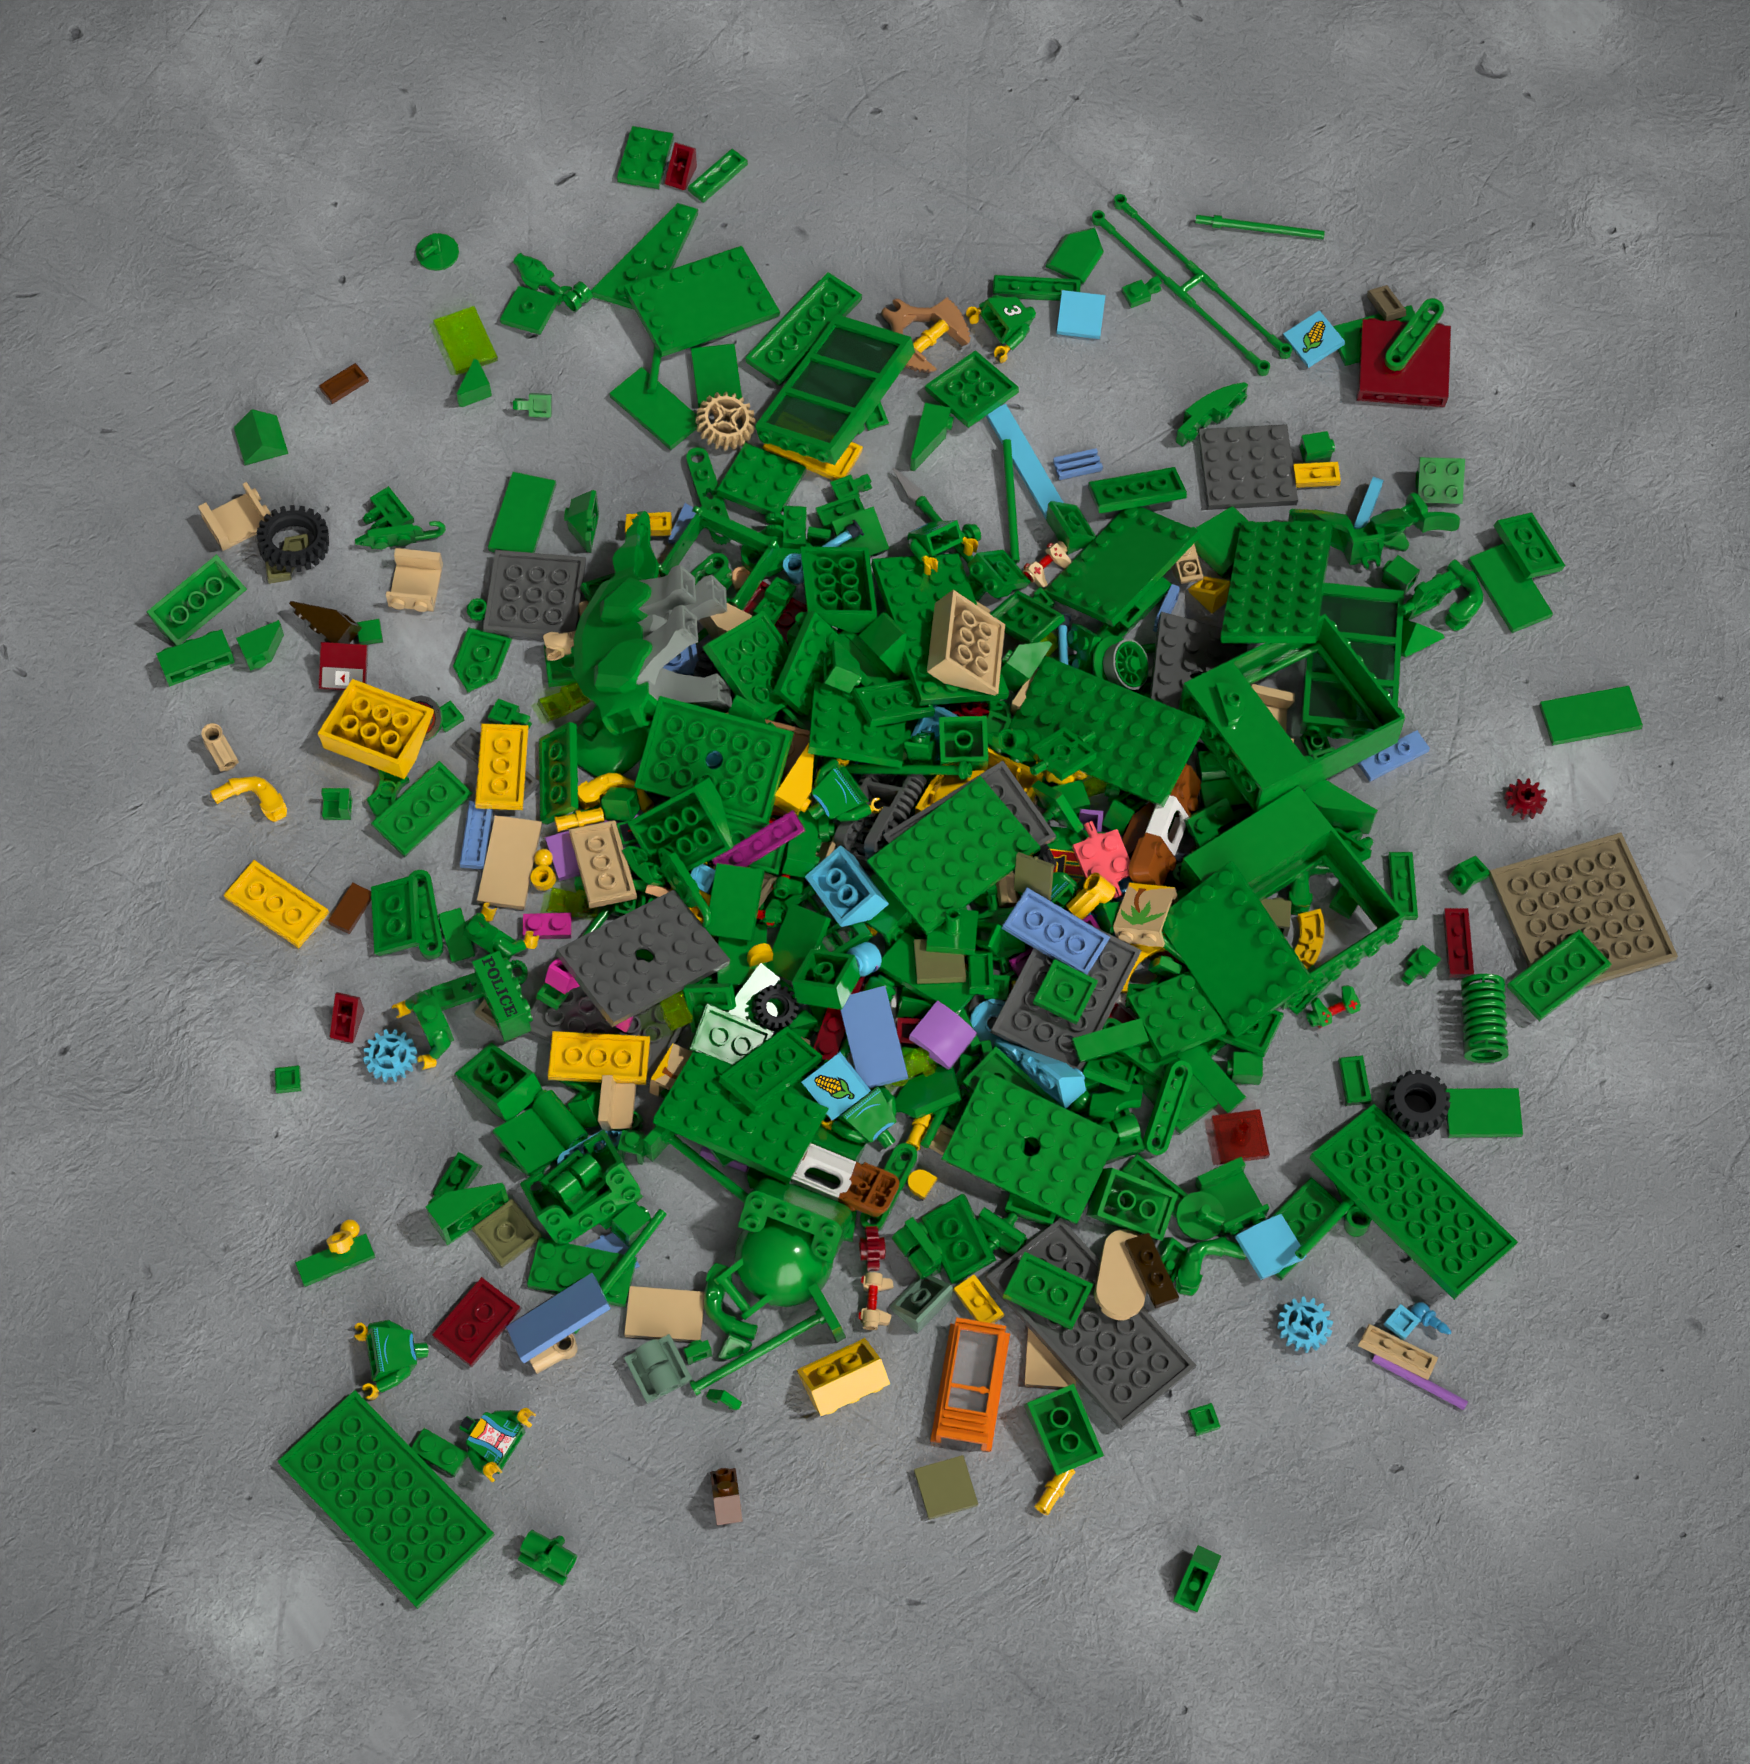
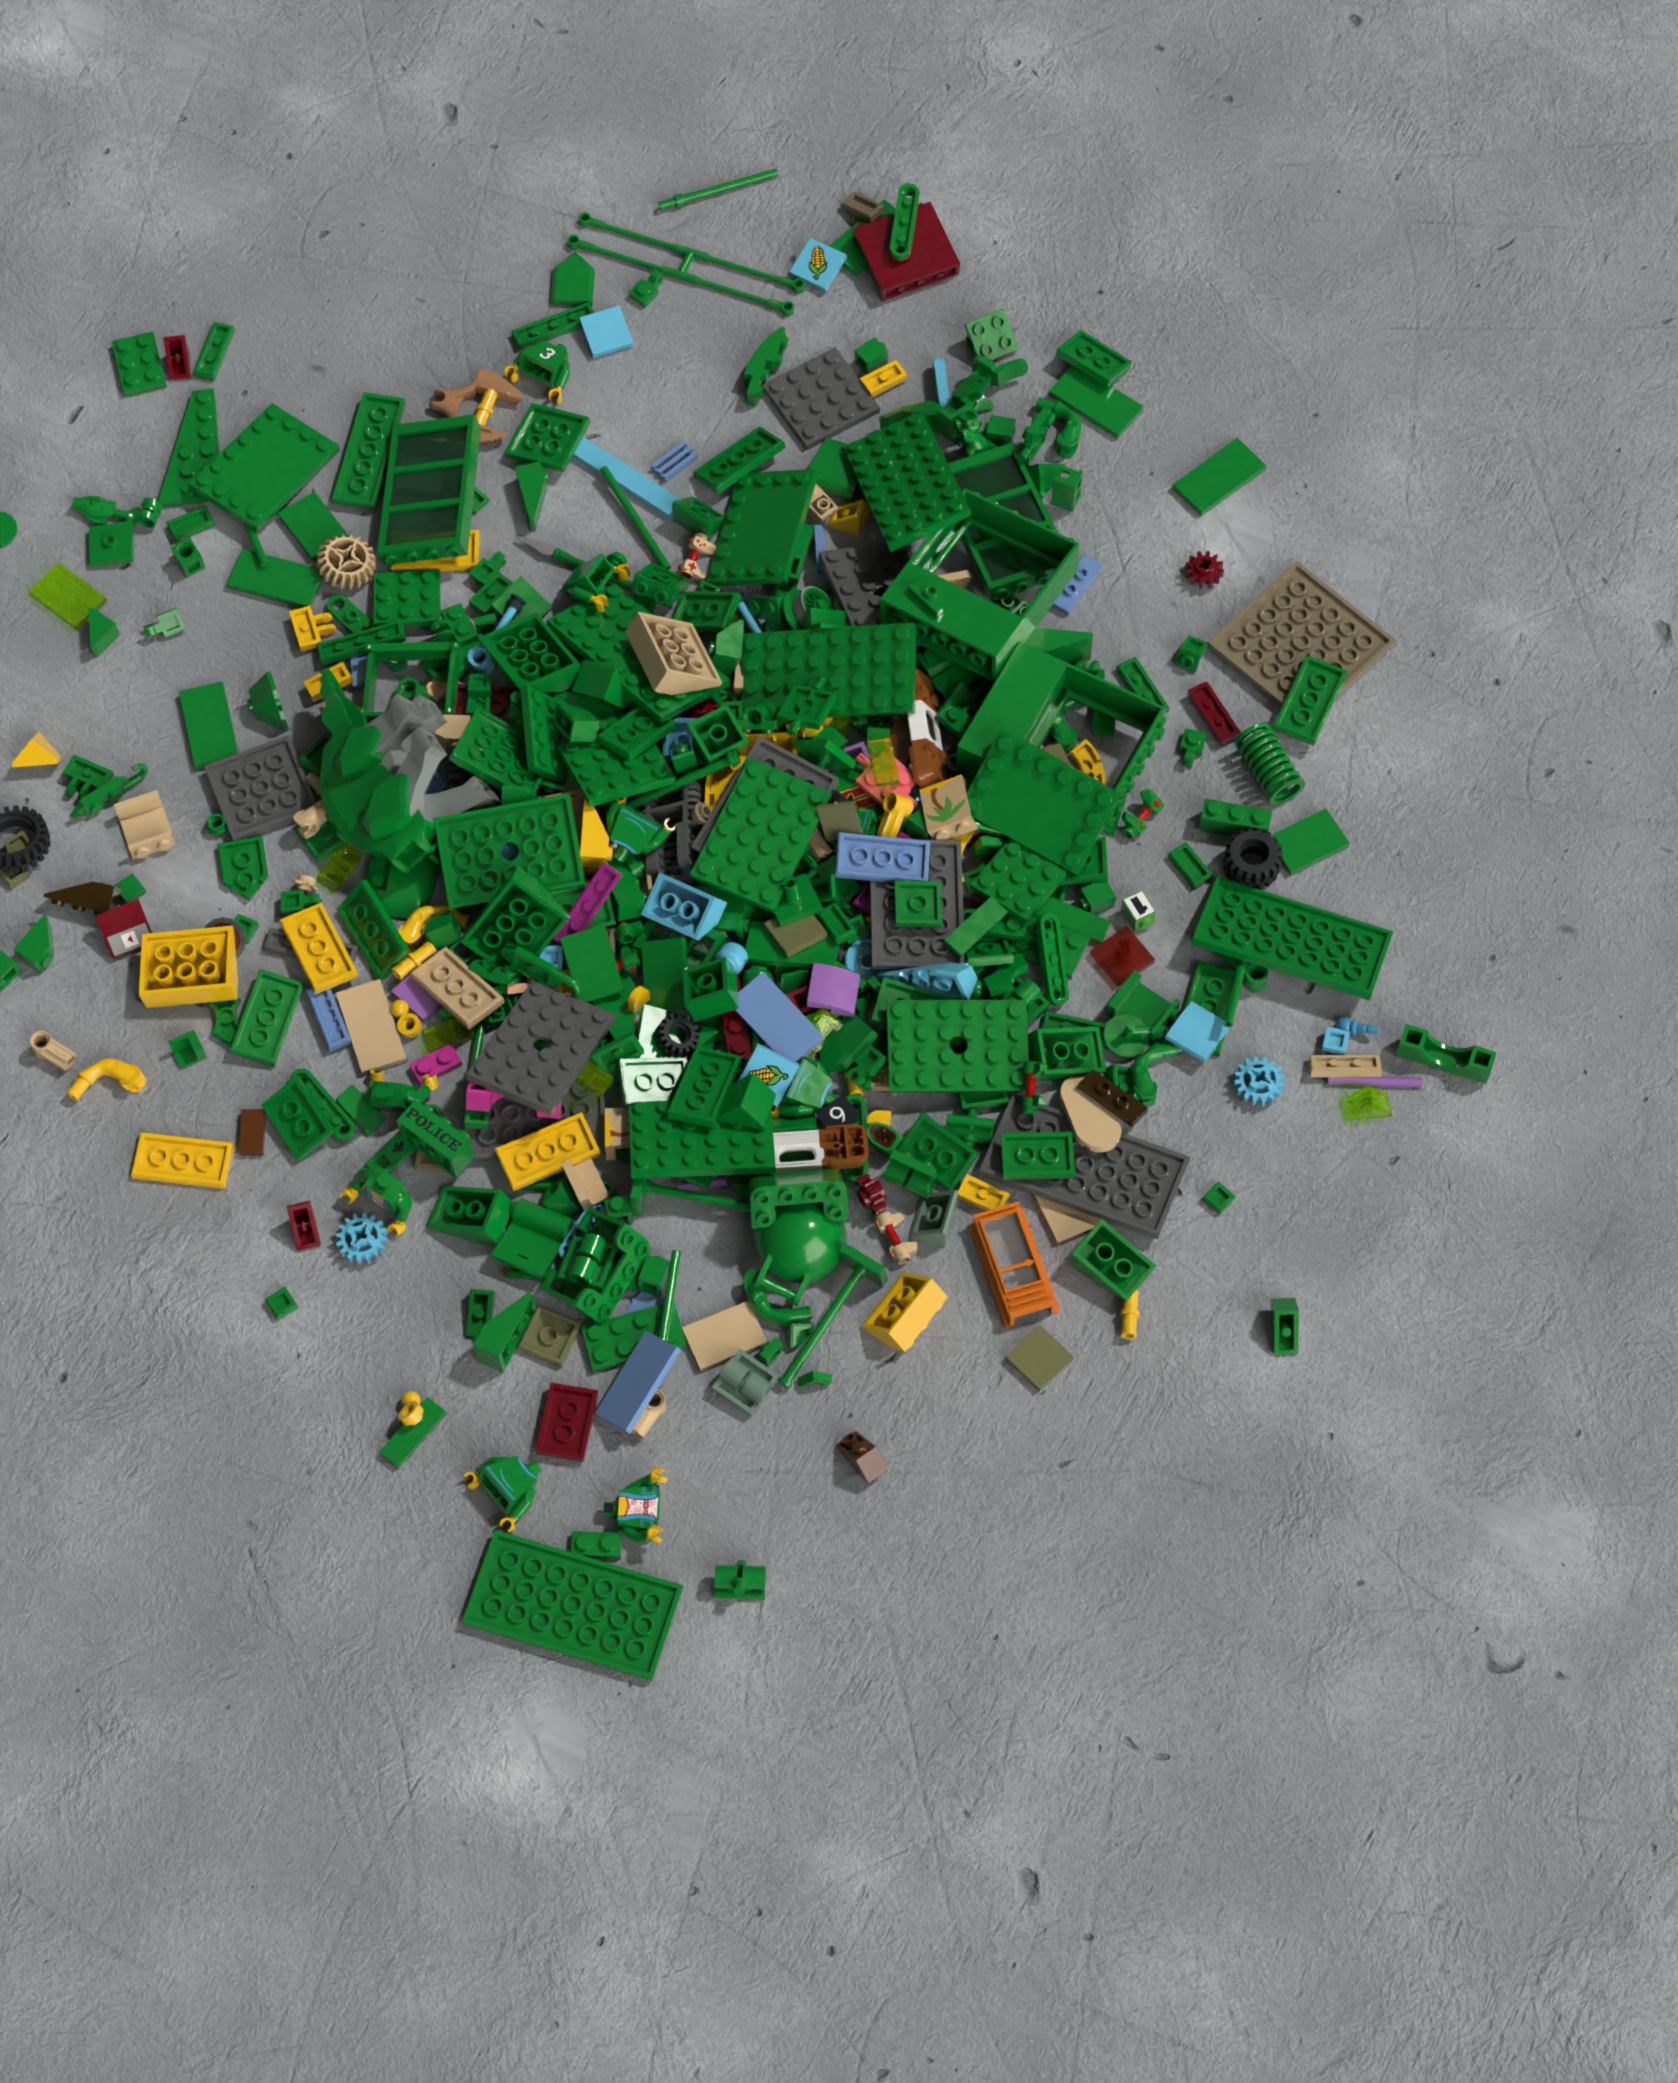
camera: 25 degrees left, 0 degrees up
(358, 469) = (37, 752): none -> yellow slope
(524, 701) = (305, 883): none -> tan plate
(588, 360) = (190, 564): none -> green brick
(609, 323) = (190, 524): none -> green tile
(657, 465) = (305, 627): none -> yellow hinge
(685, 499) = (353, 644): none -> green tile
(801, 1105) = (748, 1103): none -> green slope
(885, 1155) = (838, 1112): none -> black sticker
(909, 807) = (700, 813): none -> dark tan plate
(913, 1199) = (883, 1138): none -> rock
(938, 1122) = (868, 1062): none -> green plate
(1072, 1235) = (1032, 1101): none -> green piece
(1103, 841) = (883, 763): none -> clear neon green panel
(1129, 678) = (825, 618): none -> green panel
(1279, 1100) = (1138, 911): none -> brick
(1366, 571) = (972, 440): none -> green animal
(1399, 1400) = (1366, 1104): none -> clear neon green slope
(1419, 1054) = (1229, 818): none -> green brick
(1433, 662) = (1067, 490): none -> green hinge
(1520, 1408) = (1468, 1062): none -> green arch

